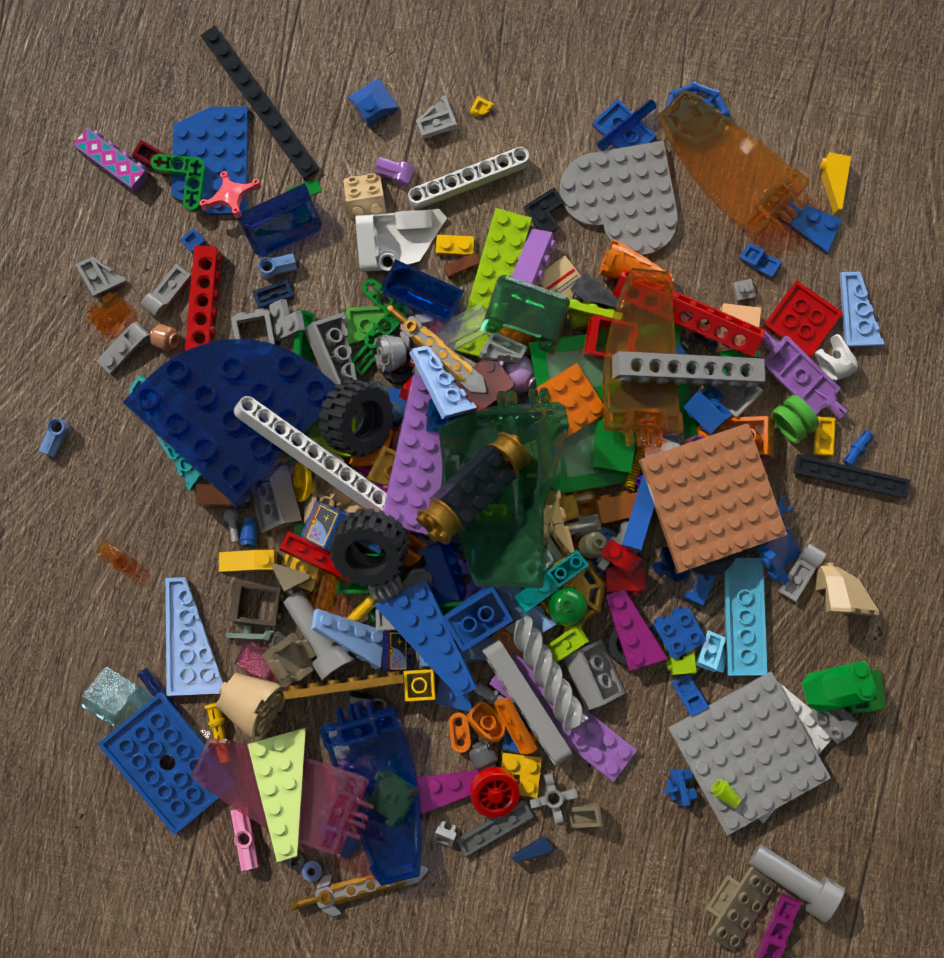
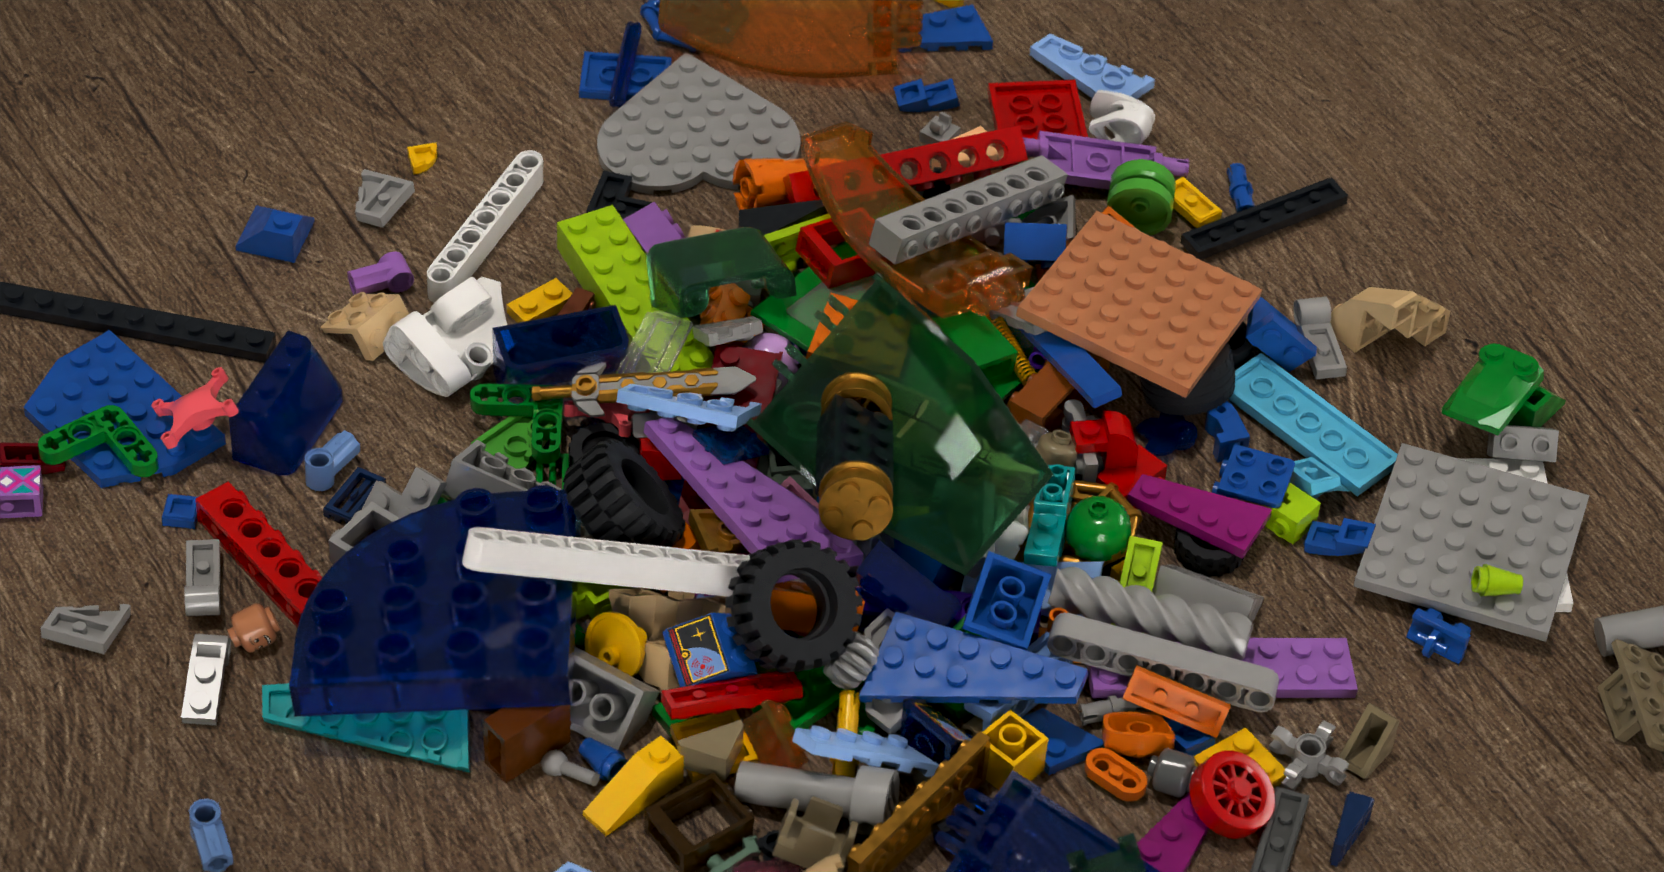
camera: 45 degrees left, 35 degrees down
(107, 312) = (141, 654): clear orange bracket -> none
(390, 353) = (583, 426): light grey cone -> none

